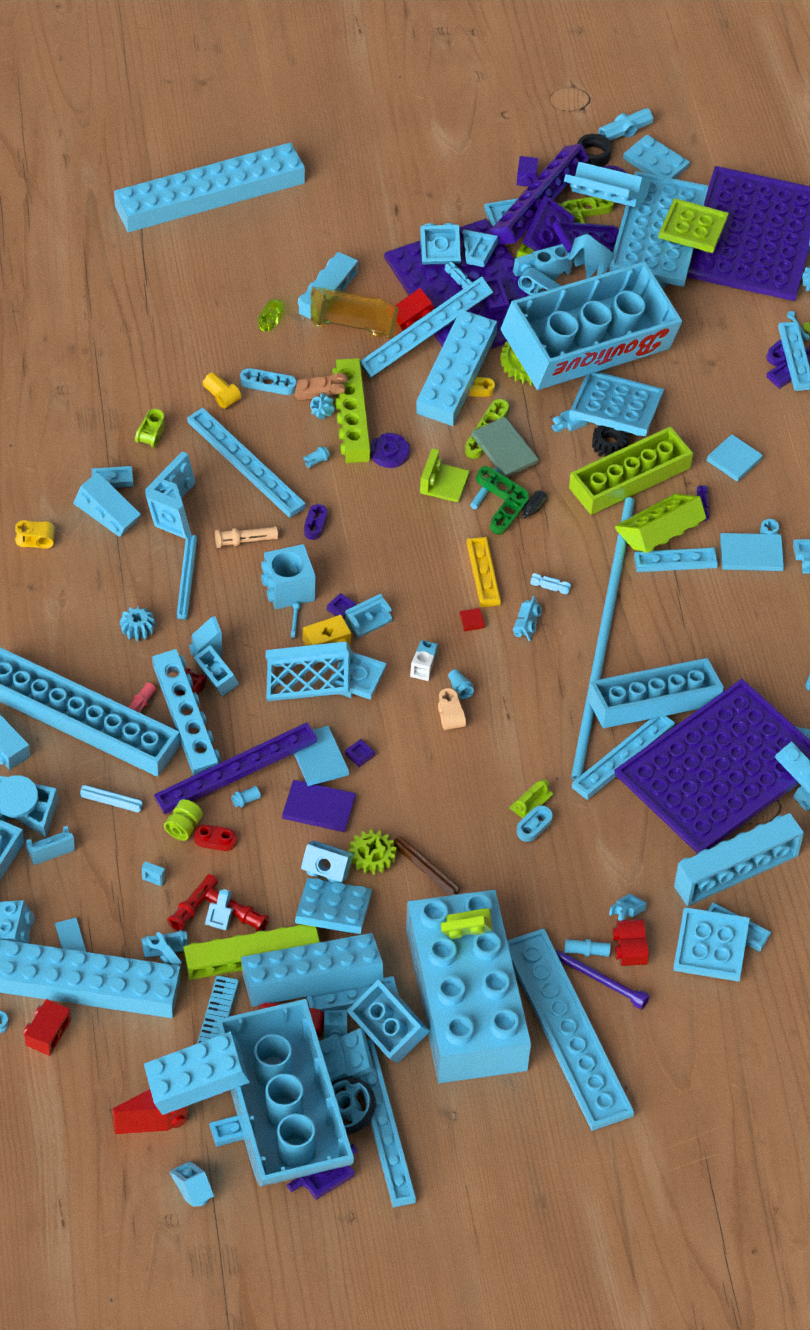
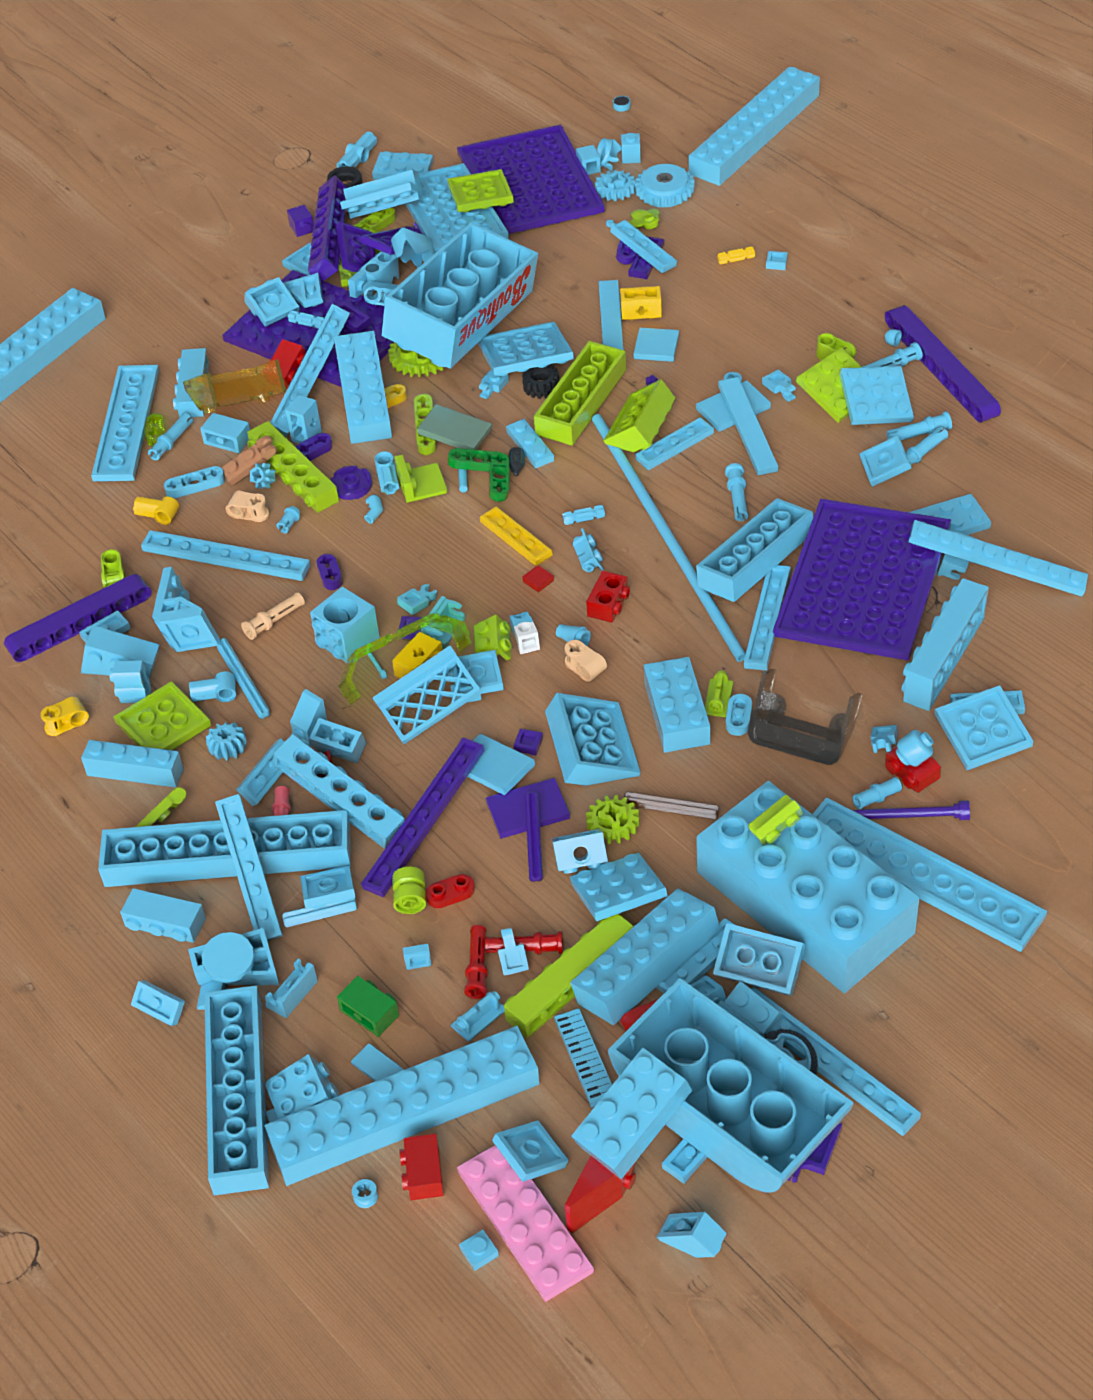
camera: 25 degrees left, 5 degrees down
(44, 1106) = (478, 1250): none -> medium azure plate
(53, 653) = (161, 810): none -> lime hinge
(57, 603) = (132, 763): none -> medium azure brick
(77, 735) = (248, 866): none -> medium azure plate
(90, 1105) = (526, 1224): none -> bright pink plate
(93, 889) = (368, 1005): none -> green brick
(99, 454) = (76, 617): none -> dark purple beam
(99, 534) = (130, 681): none -> medium azure brick
(103, 579) = (162, 719): none -> lime plate
(125, 1059) = (530, 1150): none -> medium azure plate
(127, 783) = (327, 887): none -> medium azure plate
(140, 668) = (261, 777): none -> medium azure plate
(163, 576) = (221, 688): none -> medium azure piece
(168, 955) = (490, 1021): medium azure plate -> none
(245, 796) = (448, 841): medium azure pin -> none
(250, 295) = (125, 423): none -> medium azure plate
(261, 617) = (443, 623): none -> clear neon green windscreen
(270, 331) = (166, 441): none -> medium azure pin
(292, 428) = (247, 506): none -> light nougat piece
(304, 831) = (533, 836): none -> dark purple axle
(321, 349) = (225, 433): none -> medium azure brick
(363, 585) = (415, 601): none -> medium azure plate
(383, 401) = (315, 446): none -> dark purple beam
(387, 373) = (303, 419): none -> medium azure brick
(391, 486) = (375, 508): none -> medium azure arm
(397, 651) = (493, 635): none -> lime bracket
(406, 779) = (590, 740): none -> medium azure slope
(420, 457) = (386, 472): none -> medium azure piece
(492, 787) = (676, 704): none -> medium azure brick
(511, 666) = (607, 596): none -> red brick
(558, 493) = (530, 442): none -> medium azure plate
(562, 863) = (797, 737): none -> clear smoke windscreen
(633, 929) = (914, 748): none -> medium azure head
(692, 627) = (736, 485): none -> medium azure pin
(716, 412) = (610, 314): none -> medium azure tile
(745, 578) = (748, 426): none -> medium azure tile
(748, 411) = (640, 303): none -> yellow brick

